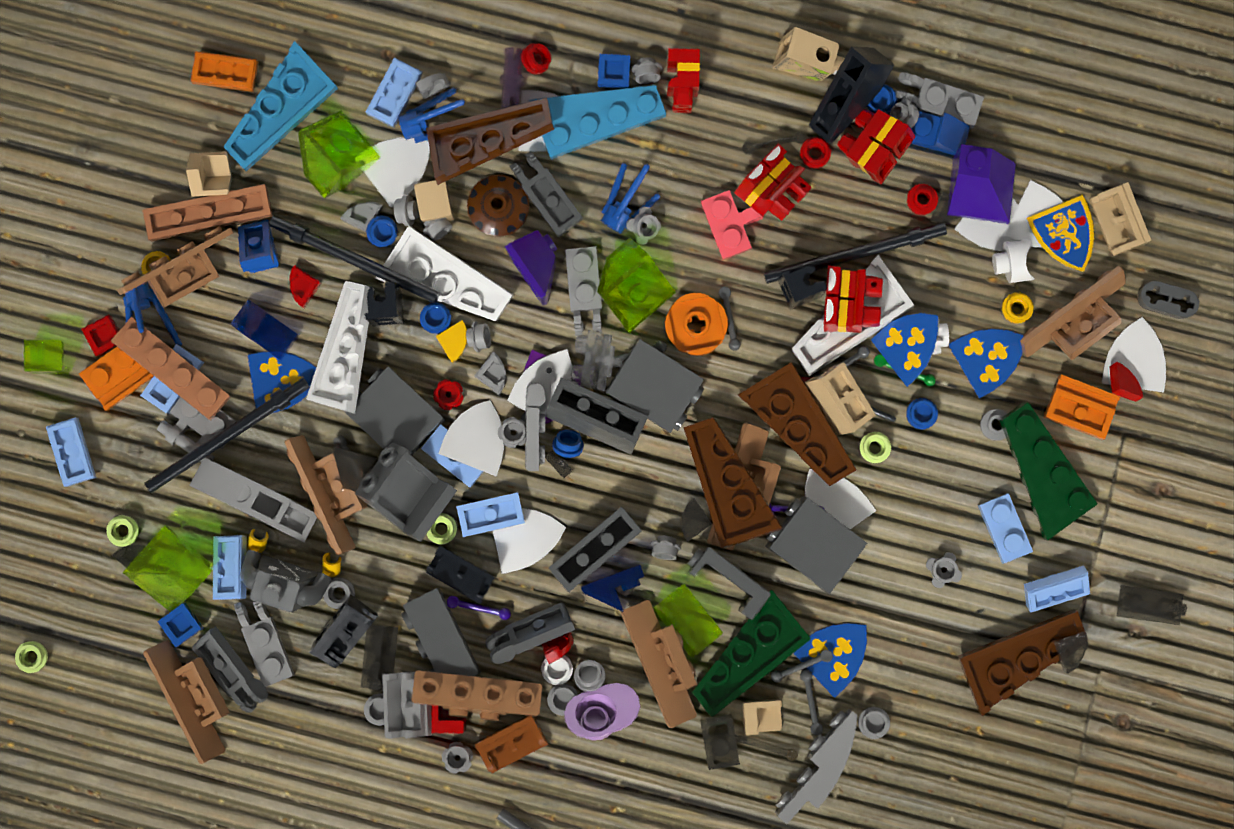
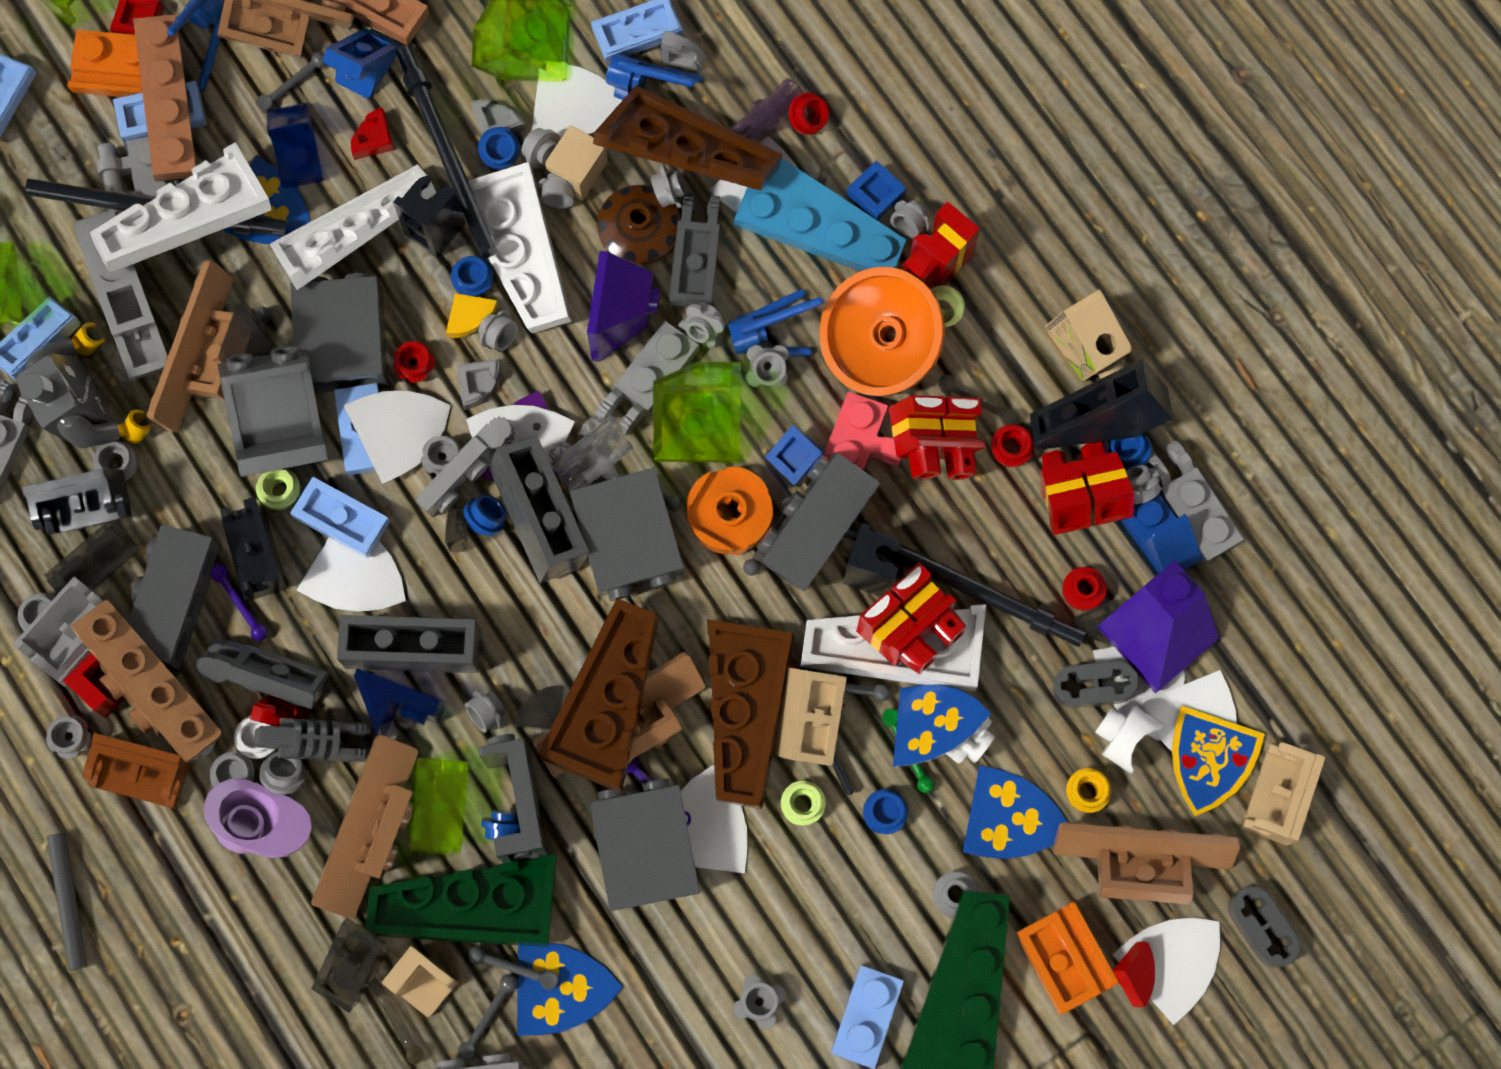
camera: 35 degrees right, 10 degrees down
(224, 320) = (266, 102): none -> dark grey hinge
(251, 417) = (198, 206): none -> white wing
(499, 171) = (668, 187): none -> light grey plate
(588, 233) = (702, 324): none -> light grey plate
(591, 644) = (312, 739): none -> dark grey hinge
(686, 172) = (856, 326): none -> orange dish
(705, 262) = (795, 455): none -> blue plate
(711, 113) = (956, 301): none -> yellowish green plate
(731, 599) = (500, 824): none -> blue plate
(750, 290) = (816, 520): none -> dark grey brick
(967, 242) = (1096, 695): none -> dark grey beam

